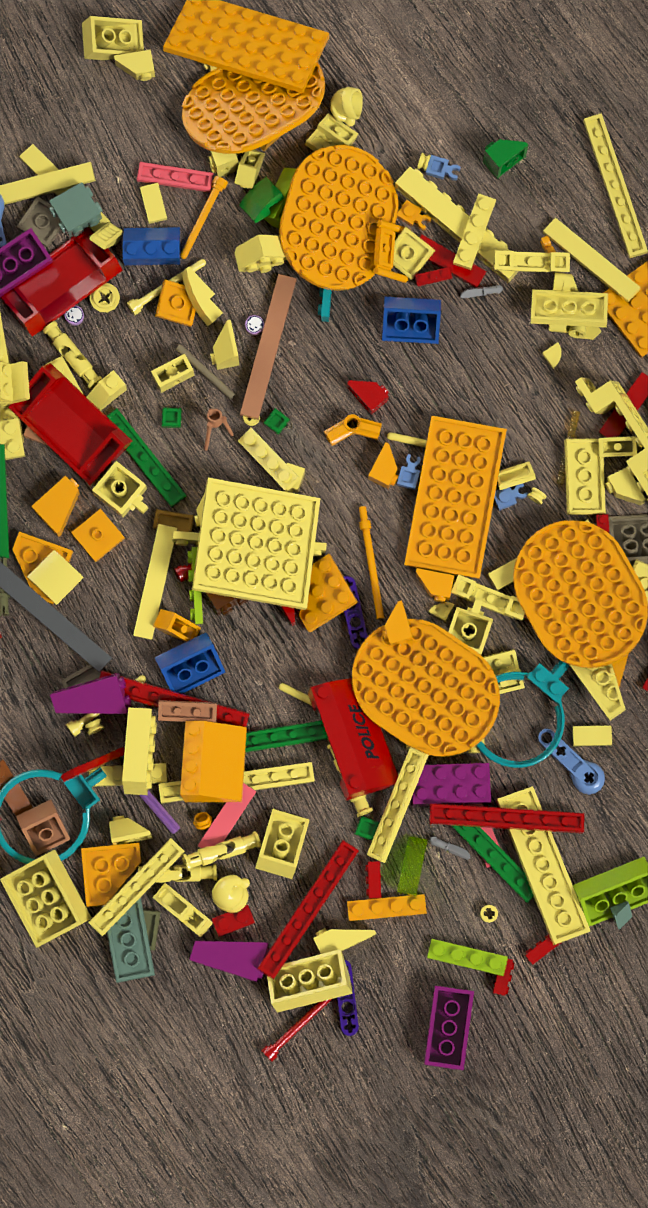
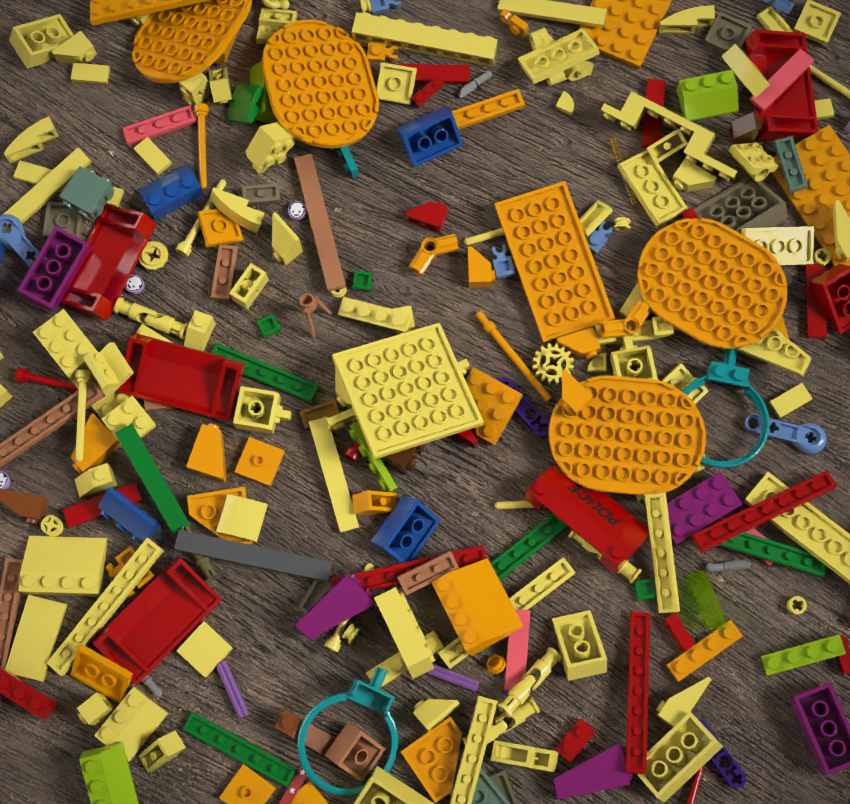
camera: 25 degrees left, 5 degrees down
(52, 130) = (31, 140): none -> light yellow slope
(93, 764) = (370, 667): red tile -> none
(107, 236) = (127, 201): light yellow slope -> none
(139, 93) = (90, 73): none -> light yellow tile
(159, 347) = (224, 272): none -> nougat plate
(206, 372) = (279, 272): dark tan bar -> none
(231, 292) = (262, 194): none -> dark tan plate
(231, 893) = (560, 716): light yellow piece -> none
(385, 250) = (375, 90): light orange plate -> none
(393, 589) = (549, 357): none -> light yellow gear
(474, 231) = (442, 35): light yellow plate -> none
(474, 588) = (618, 328): none -> light orange piece
(478, 322) = (488, 109): none -> light orange plate
(531, 261) = (506, 34): light yellow slope -> none

